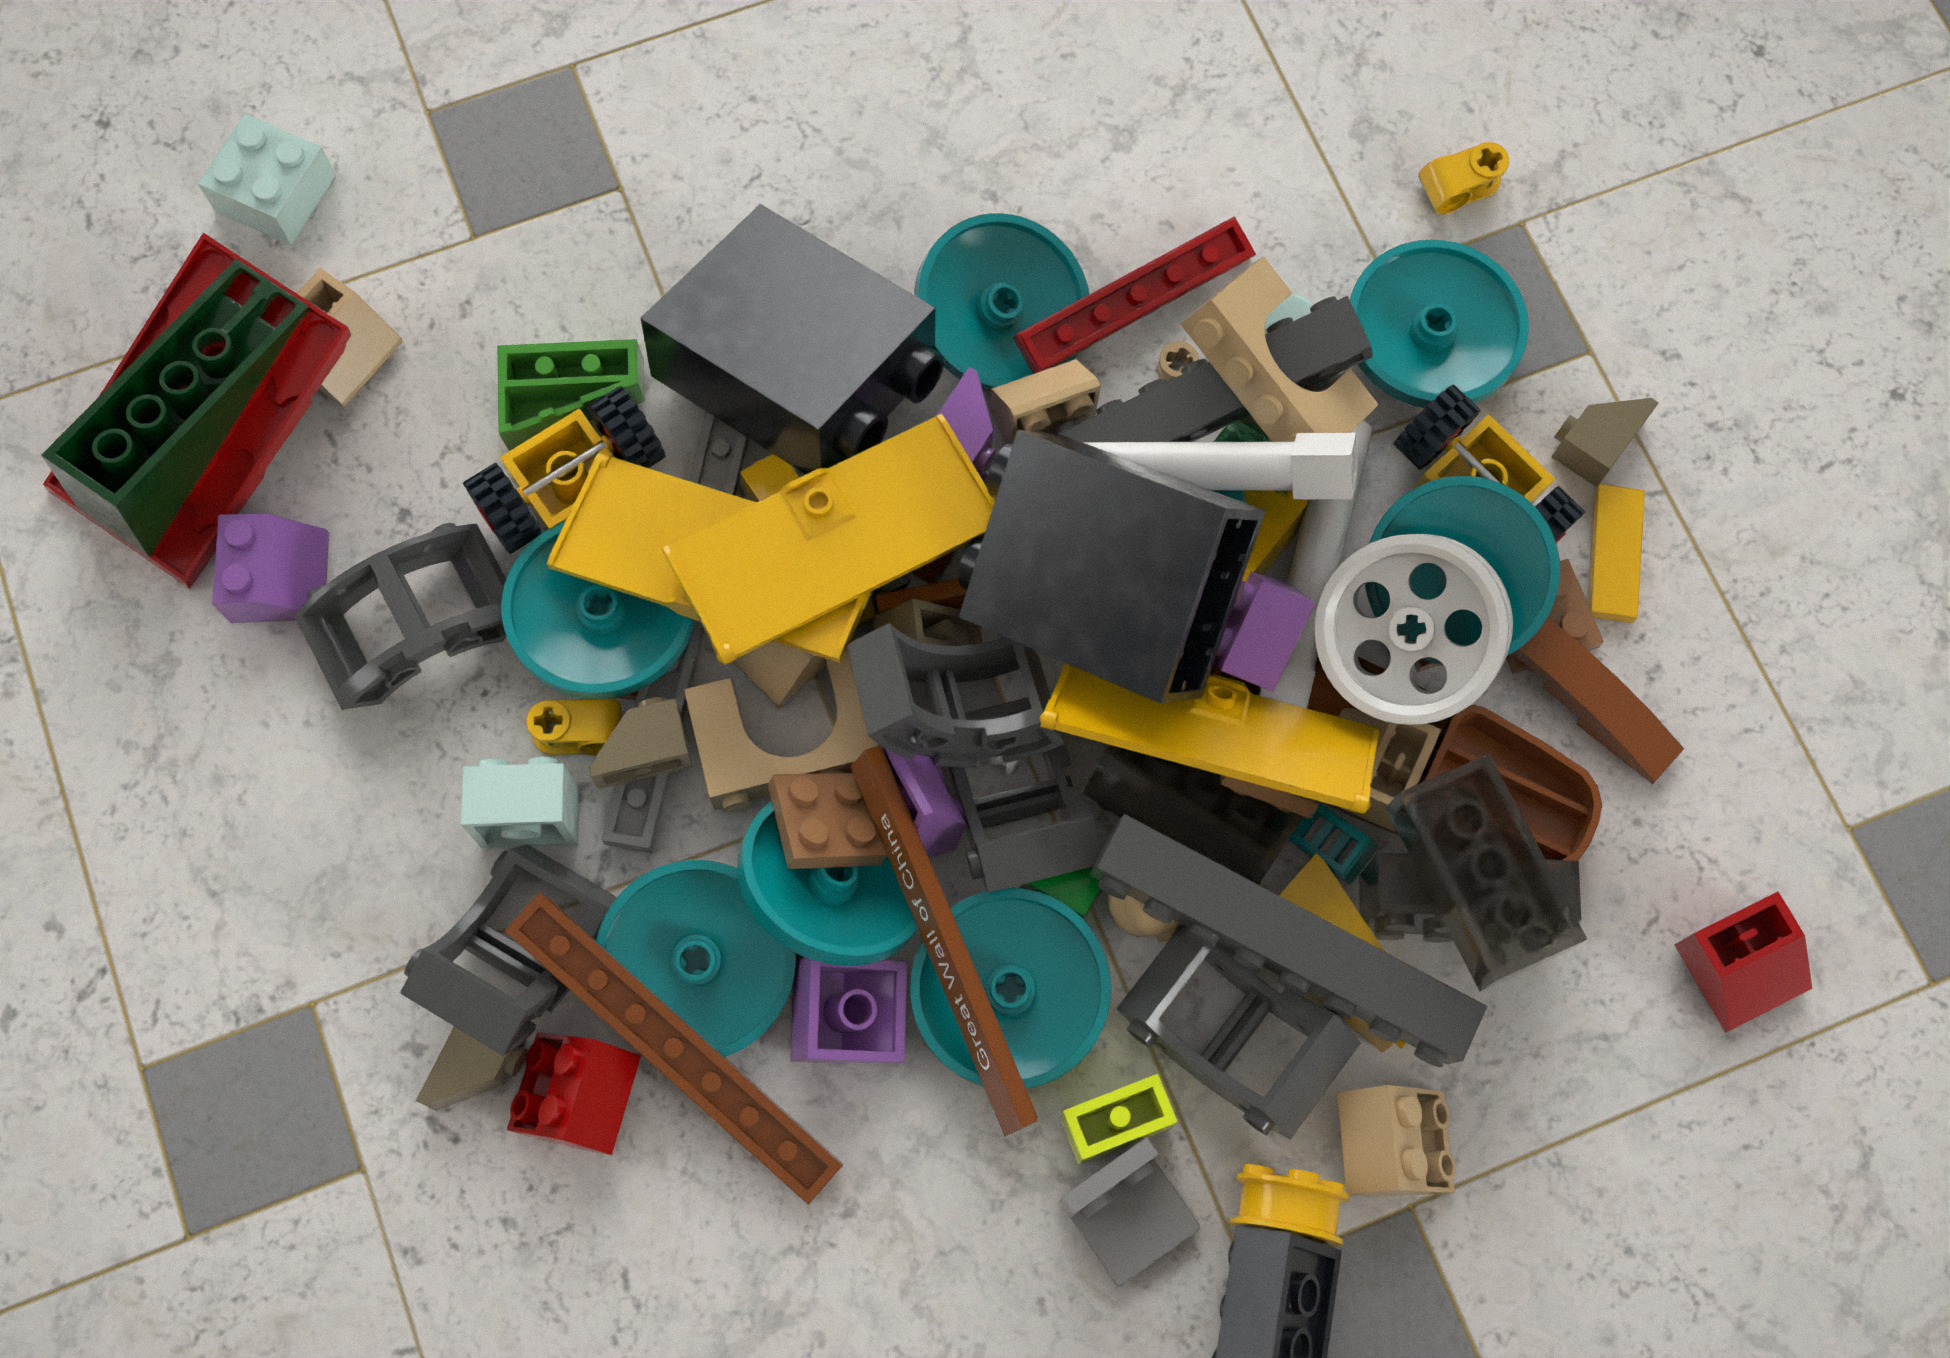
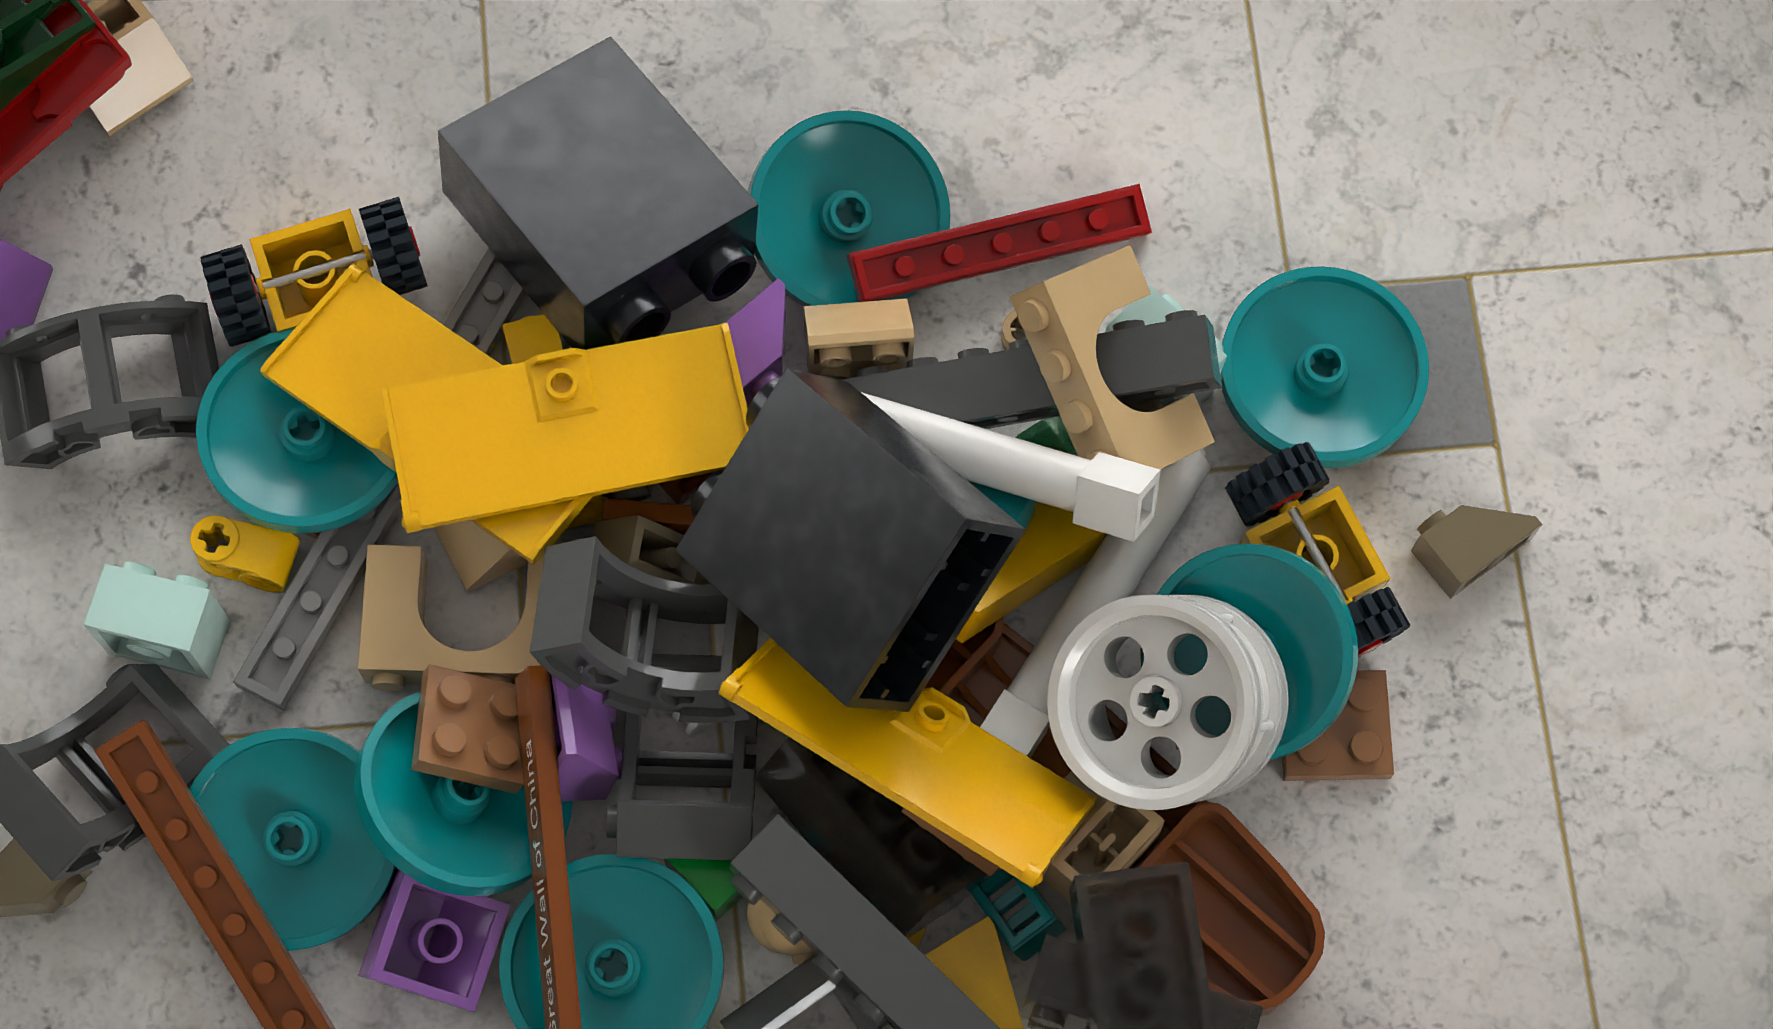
camera: 15 degrees right, 0 degrees up
(554, 379) = (337, 169): bright green wedge -> none
(574, 1092) = (120, 941): red slope -> none
(643, 745) = (305, 592): dark tan slope -> none
(1262, 630) = (998, 655): medium lavender slope -> none
(1464, 176) = (1406, 208): yellow piece -> none
(1601, 701) = (1364, 838): dark orange slope -> none
(1616, 553) = (1443, 679): yellow tile -> none

